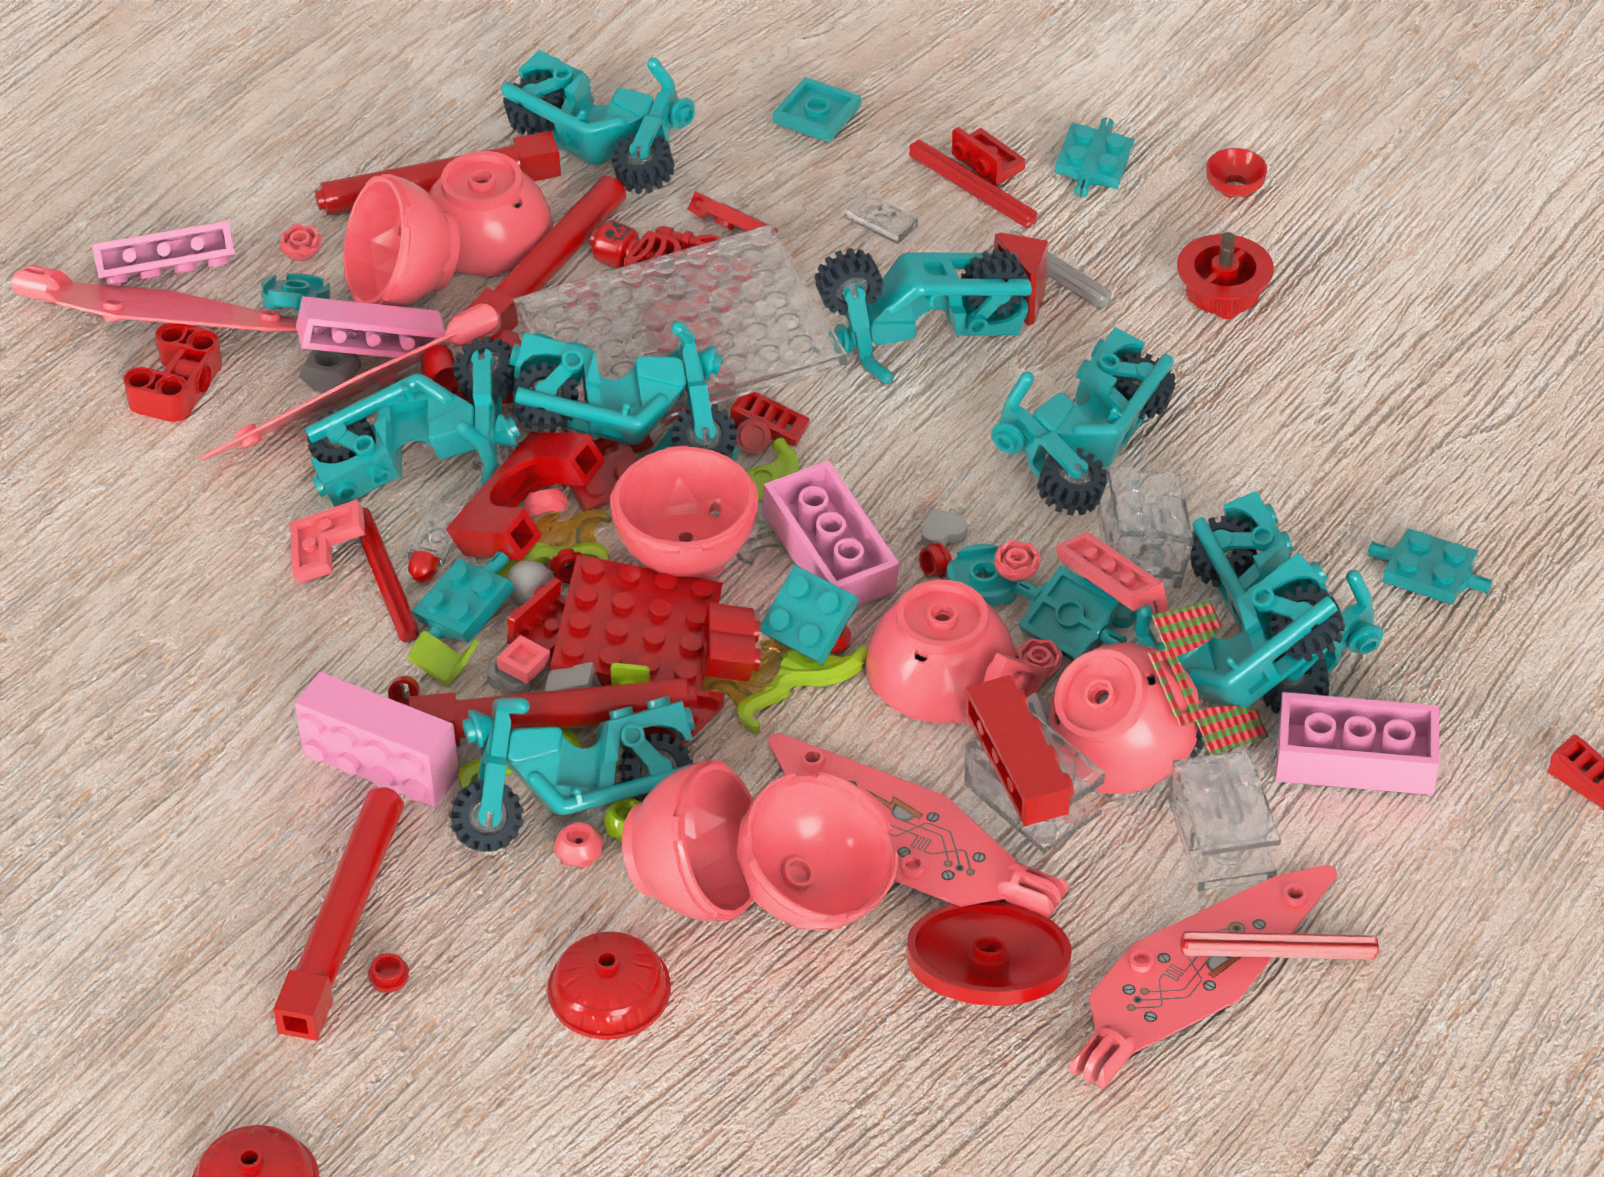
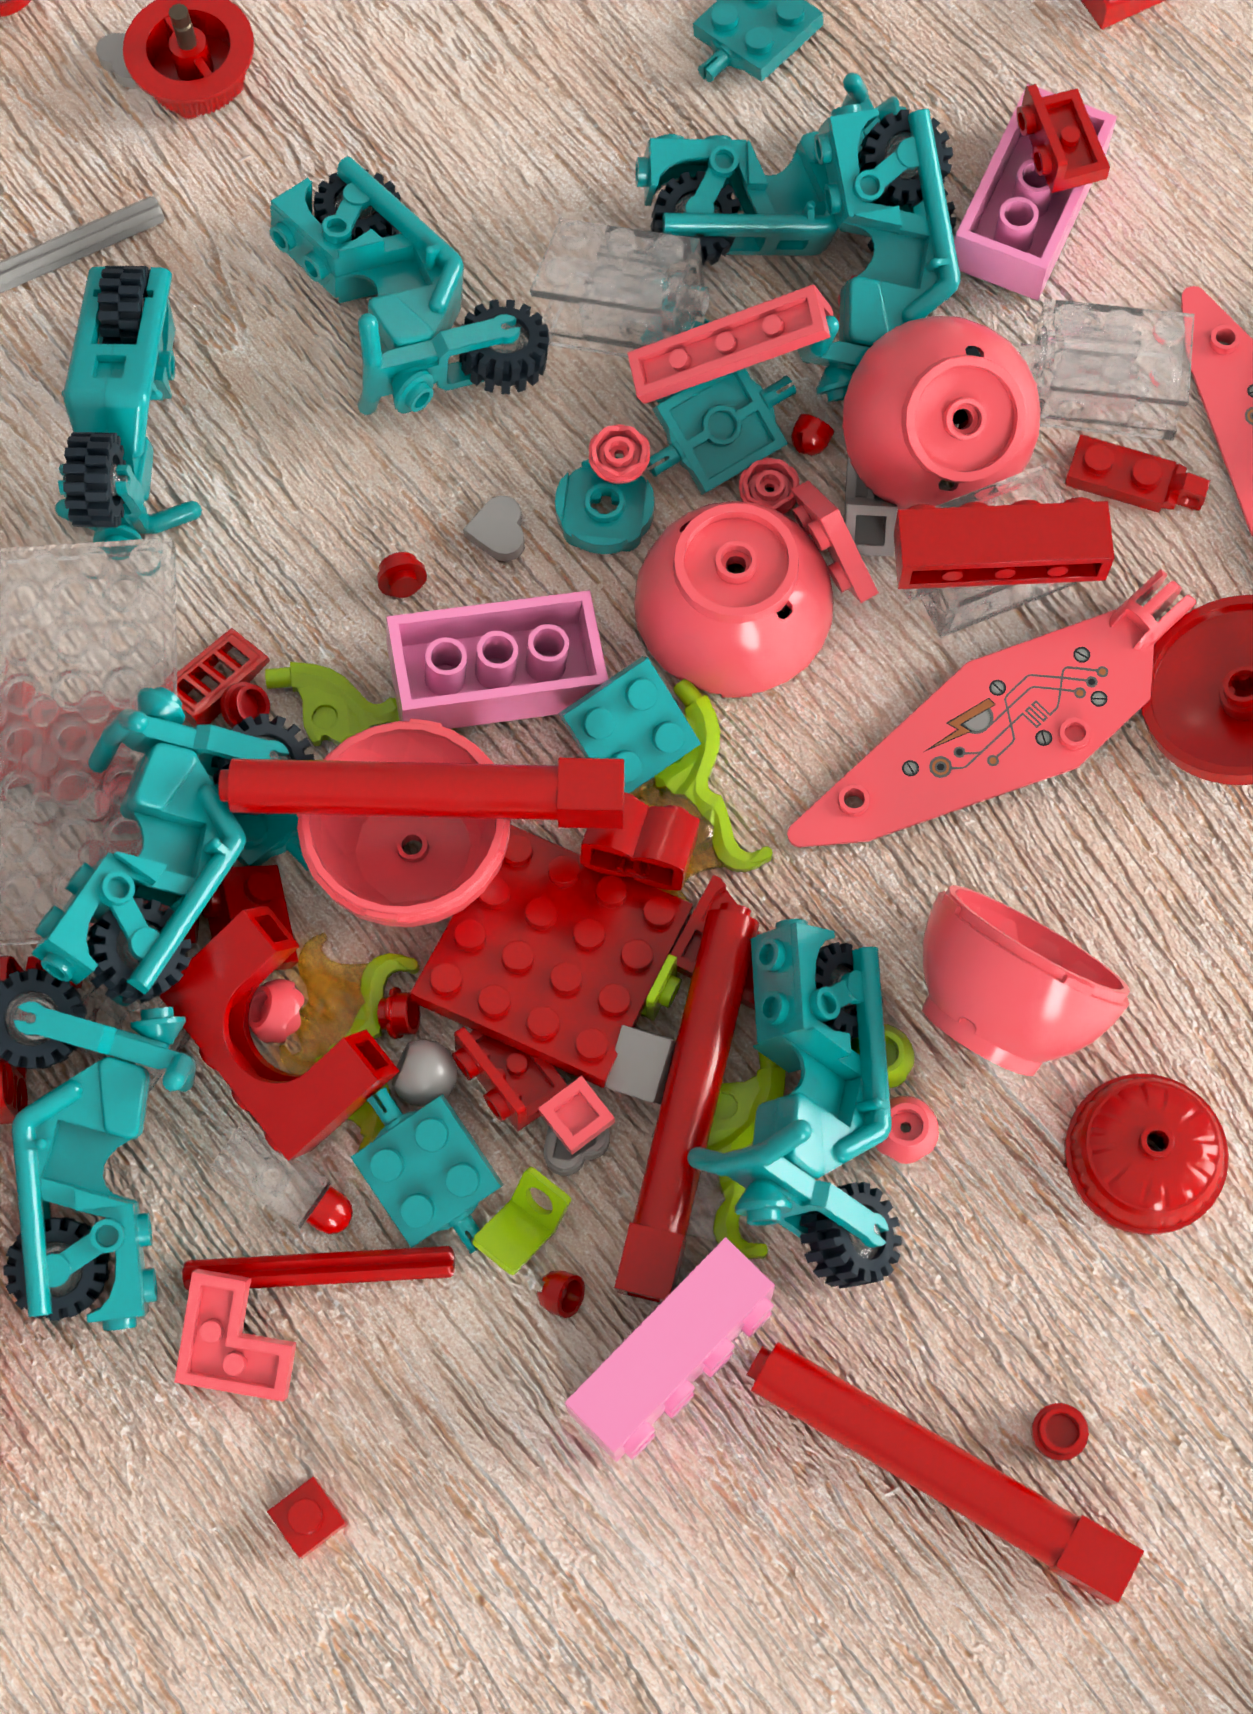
camera: 70 degrees left, 25 degrees up
(224, 611) = (307, 1517): none -> red plate
(724, 553) = (574, 792): none -> red brick
(816, 851) = (1081, 835): coral rock -> none
(881, 485) = (401, 575): none -> red plate
(934, 560) = (556, 553): red plate -> none
(1033, 258) = (67, 271): red slope -> none
(1149, 866) = (1134, 477): none -> red hinge
(1220, 726) = (901, 299): piece -> none
(1387, 721) = (1062, 139): none -> red bracket

